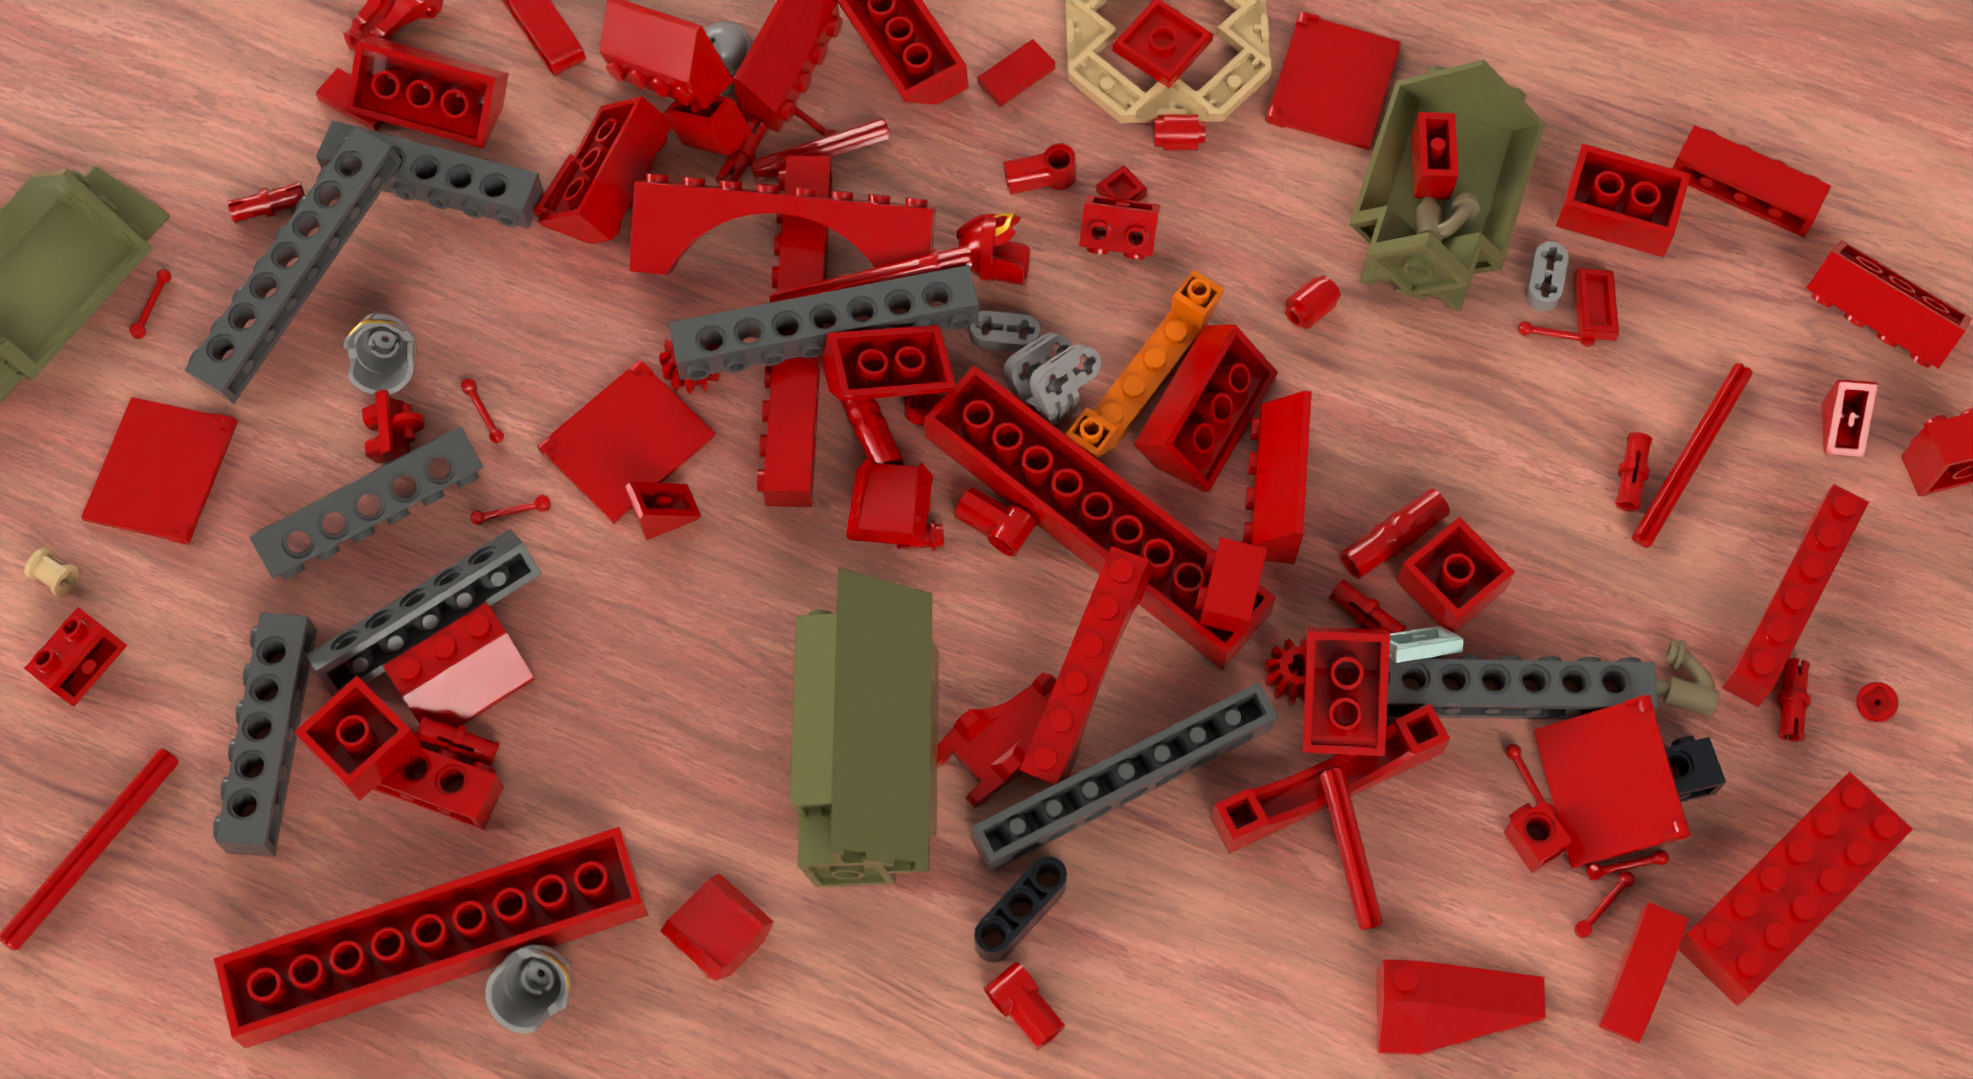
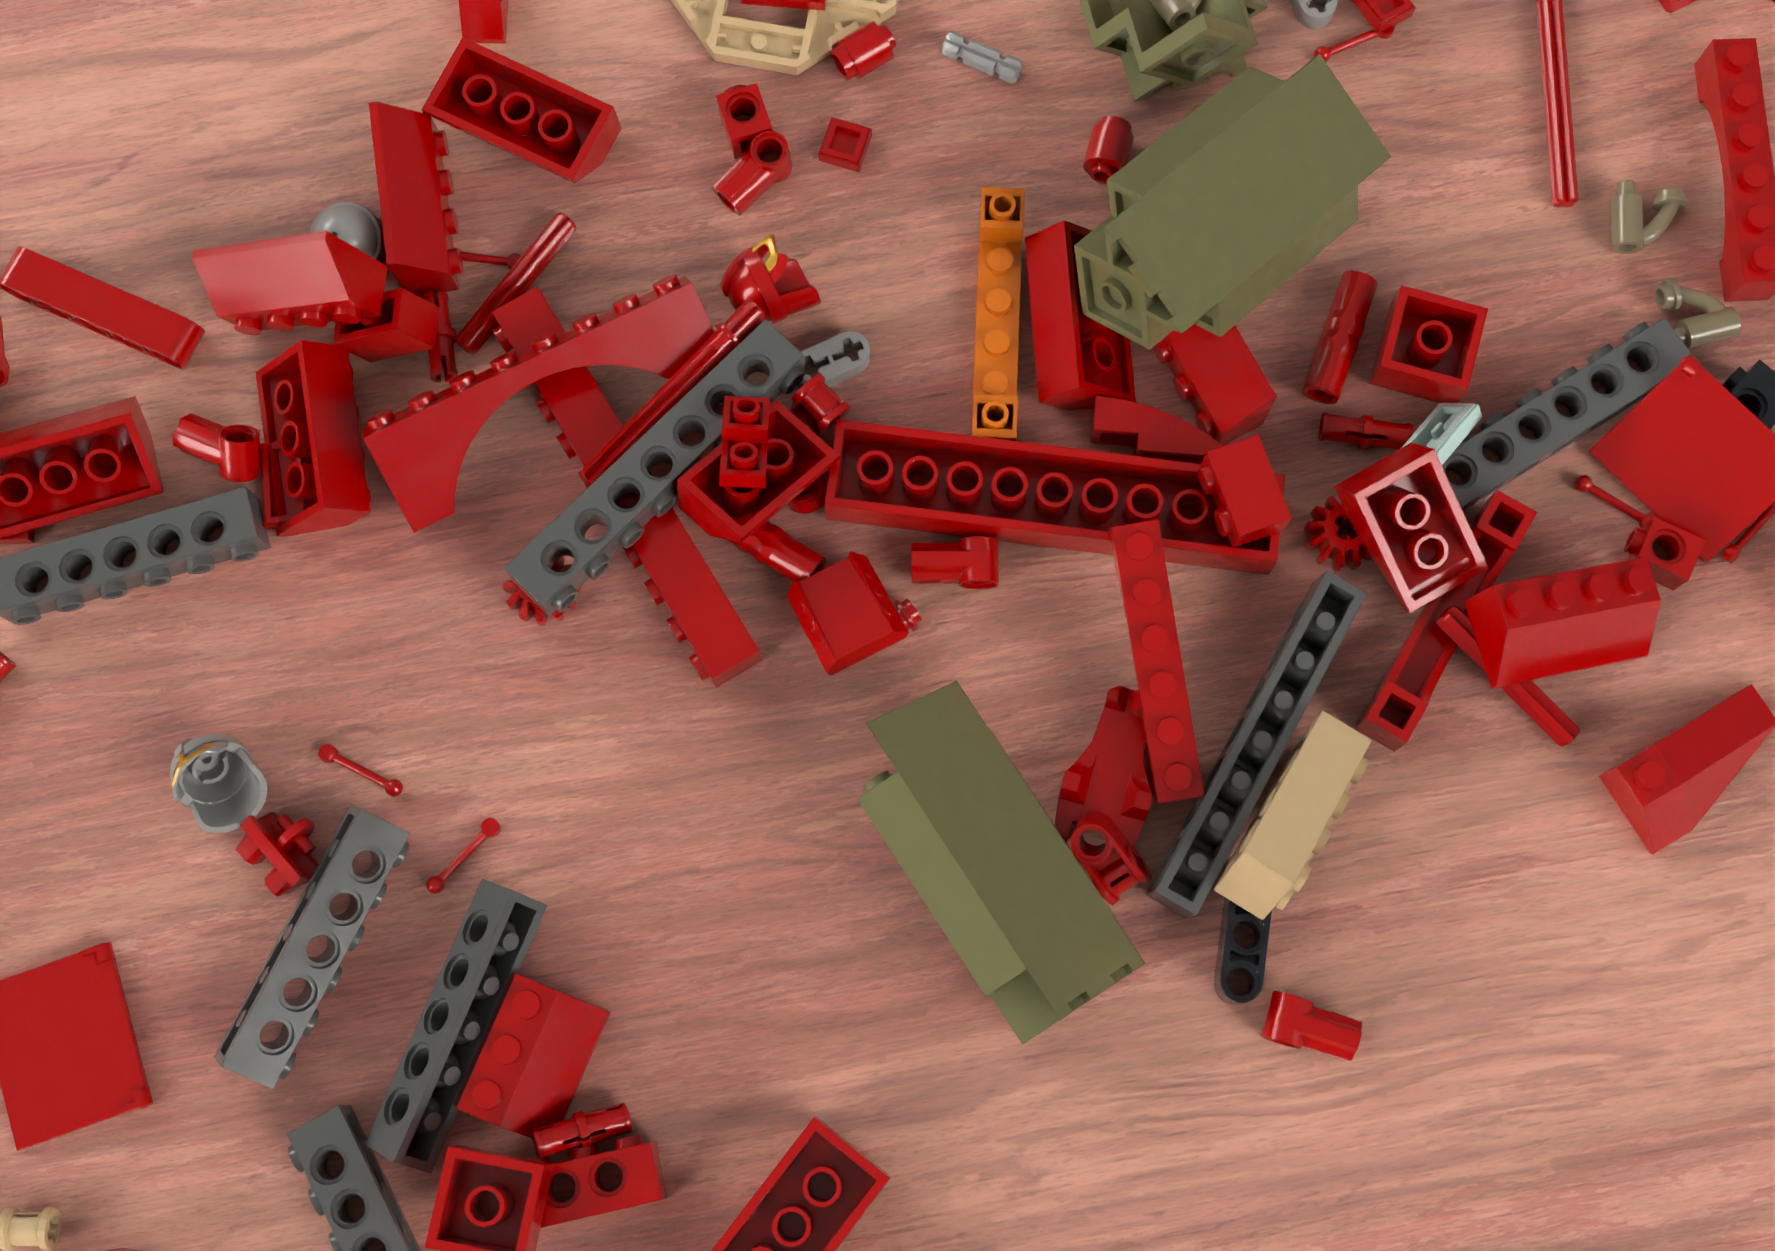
camera: 30 degrees left, 10 degrees up
(293, 283) = (71, 761): dark grey brick -> none
(547, 143) = (229, 447): none -> red piece
(624, 436) = (530, 709): red piece -> none
(662, 506) = (618, 756): red slope -> none
(718, 928) = (968, 1145): red slope -> none
(894, 336) = (744, 442): none -> red slope
(957, 790) = (1111, 865): none -> red piece
(969, 349) = (818, 405): none -> red piece
(1016, 72) = (658, 83): red tile -> none
(1048, 398) = (913, 386): light grey piece -> none
(1055, 116) = (738, 101): none -> red brick
(1109, 836) = (1295, 817): none -> tan brick
(1119, 228) = (874, 184): red brick -> none
(1196, 506) = (1148, 430): none -> red slope
(1264, 186) = (982, 57): none -> light grey axle
(1360, 377) = (1227, 205): none -> olive panel
(1420, 832) = (1565, 621): none -> red slope
(1584, 928) = (1755, 613): red hinge -> none
(1632, 484) = (1516, 138): red pin -> none
(1677, 586) = (1627, 226): none -> dark tan plant

